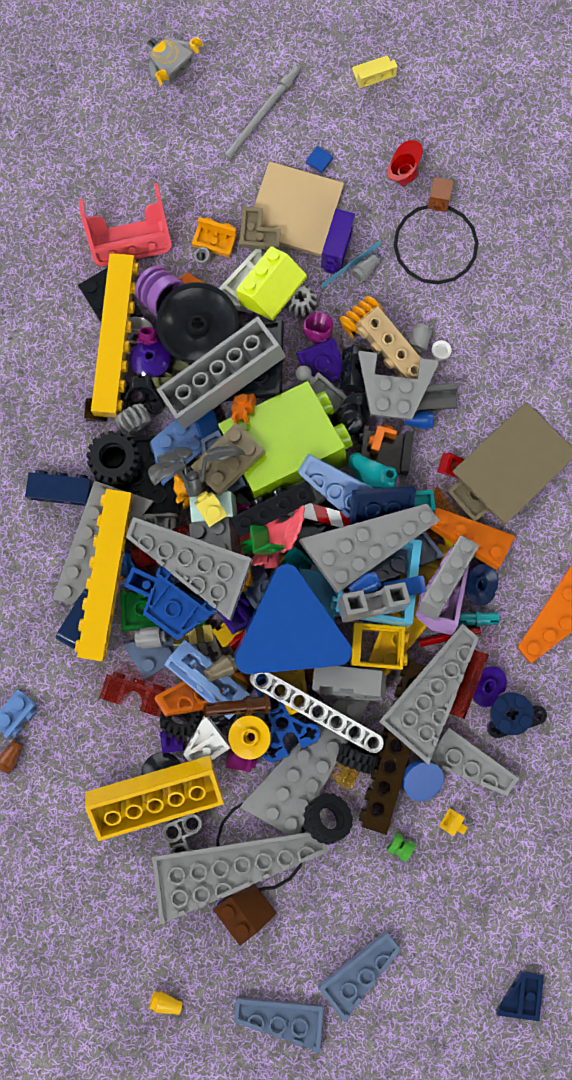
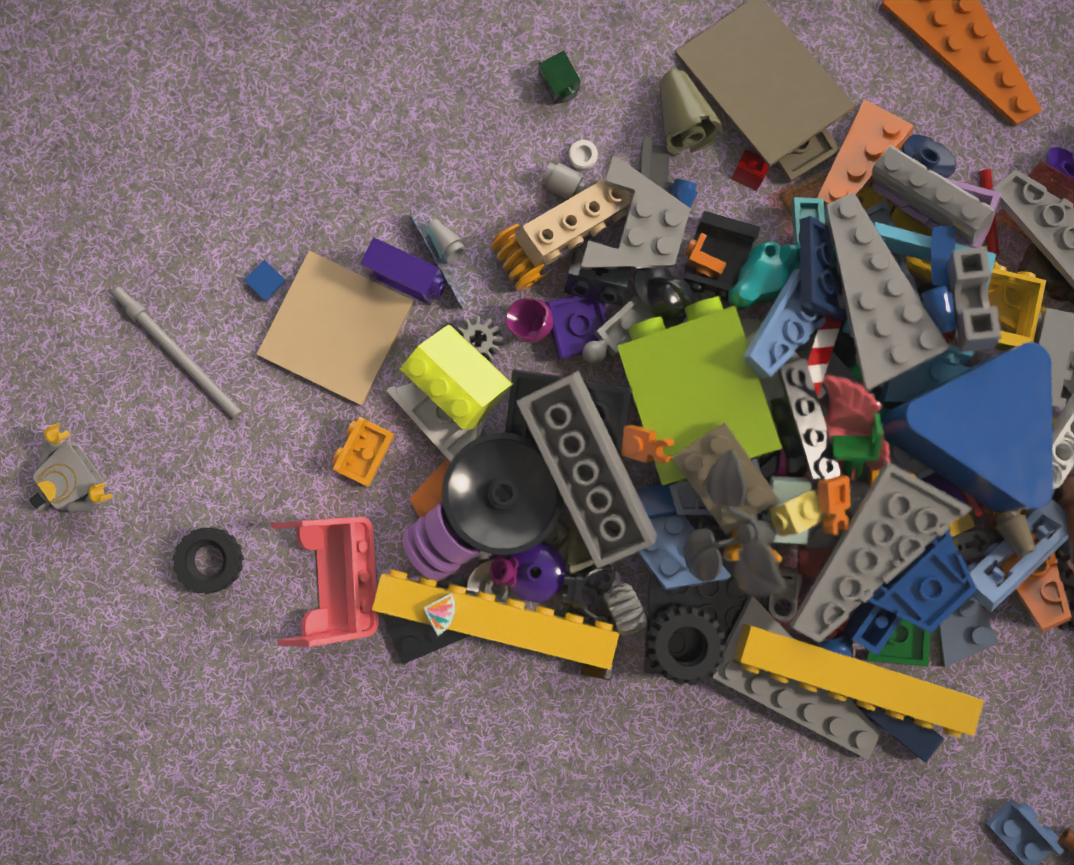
camera: 85 degrees left, 5 degrees up
(58, 488) = (708, 731): dark blue brick -> none
(113, 295) = (441, 613): none -> tile
(116, 688) = (1004, 678): clear red arch -> none
(129, 138) = (185, 560): none -> black tyre
(150, 637) = (949, 632): light grey brick -> none
(198, 255) = (387, 478): light grey hinge -> none
(222, 526) = (833, 500): none -> orange plate
(254, 235) = (370, 393): dark tan plate -> none
(374, 71) = (140, 177): light yellow panel -> none
(405, 162) = (295, 155): red piece -> none
(427, 280) = (421, 79): black piece -> none
(440, 194) = (352, 114): dark orange brick -> none
(478, 618) = (973, 169): teal pin -> none
(479, 411) = (686, 114): none -> olive cone
(491, 325) = (559, 77): none -> dark green brick

